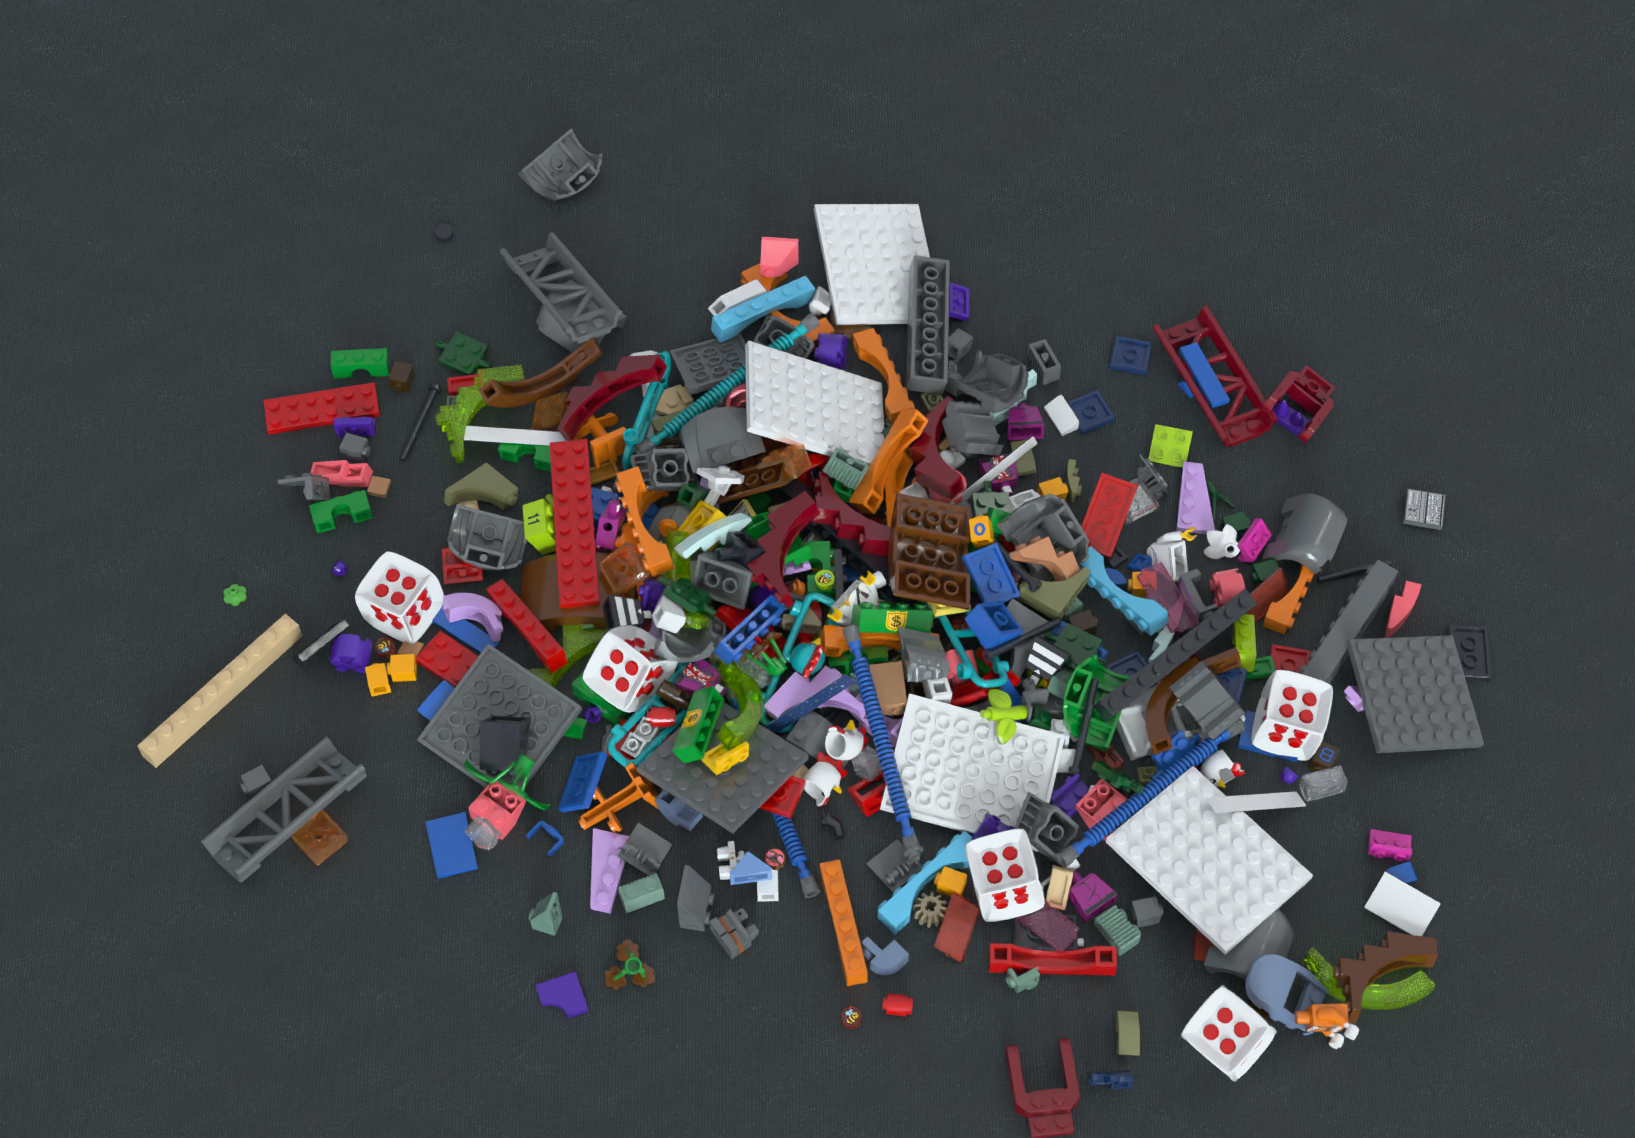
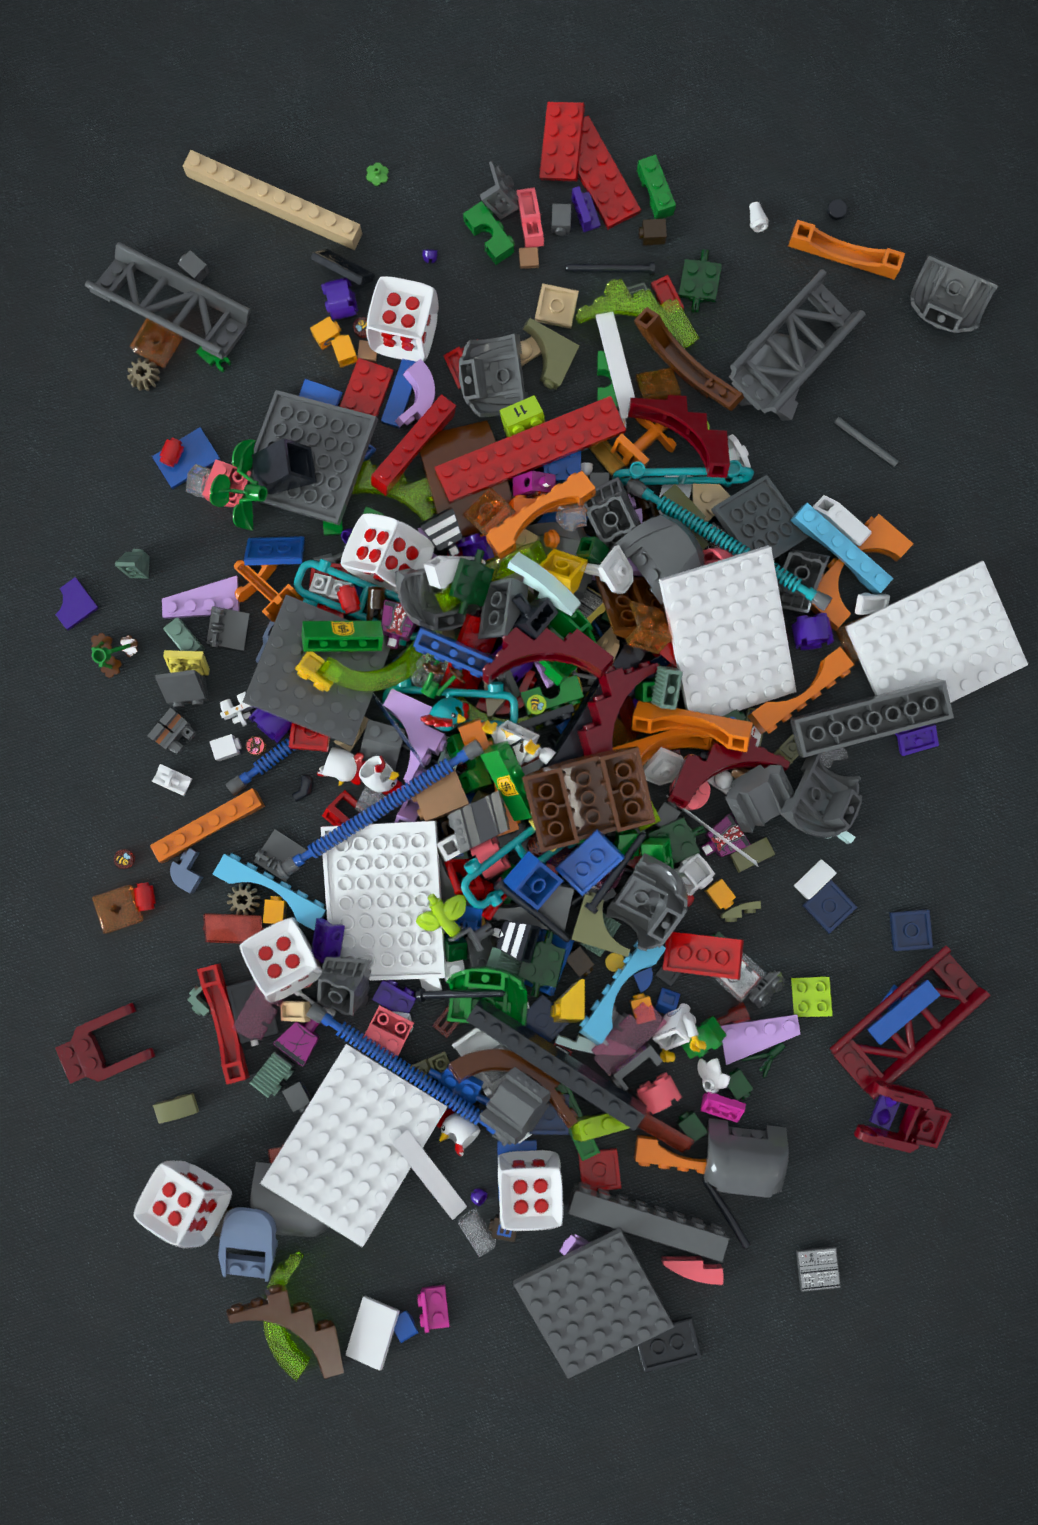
camera: 70 degrees right, 25 degrees up
(280, 425) = (562, 141): none -> red plate
(348, 859) = (140, 368): none -> dark tan gear
(356, 794) = (211, 359): none -> green plate
(424, 293) = (758, 219): none -> white cone
(437, 475) = (556, 306): none -> tan plate
(442, 851) = (171, 452): none -> red brick
(463, 258) = (877, 261): none -> orange arch
(552, 831) = (225, 541): blue piece -> none
(653, 503) = (571, 516): none -> clear brick
(657, 275) = (867, 442): none -> dark grey bar
(667, 893) = (185, 661): none -> light yellow tile
(750, 870) = (224, 729): medium blue slope -> none
(758, 831) = (270, 724): none -> dark purple brick
(778, 256) = (901, 543): coral slope -> none
(784, 943) = (172, 780): none -> white hips
(797, 587) = (526, 681): orange plate -> none
(896, 1048) = (106, 903): none -> clear orange brick
(959, 344) = (865, 755): dark grey brick -> none
(981, 531) = (632, 840): light orange brick -> none
(1025, 423) = (790, 846): magenta torso -> none
(1041, 552) = (628, 903): nougat arch -> none
(1044, 361) = (870, 846): dark grey brick -> none
(1091, 598) = (614, 961): none -> yellow tile
(1115, 1079) = (127, 1102): dark blue slope -> none
(1117, 777) = (418, 1038): dark green plate -> none
(1121, 636) = (571, 1004): none -> yellow slope
(1170, 511) = (735, 1014): none -> clear red piece
(1193, 547) = (710, 1033): none -> green brick
(1327, 1019) = (225, 1291): orange torso -> none

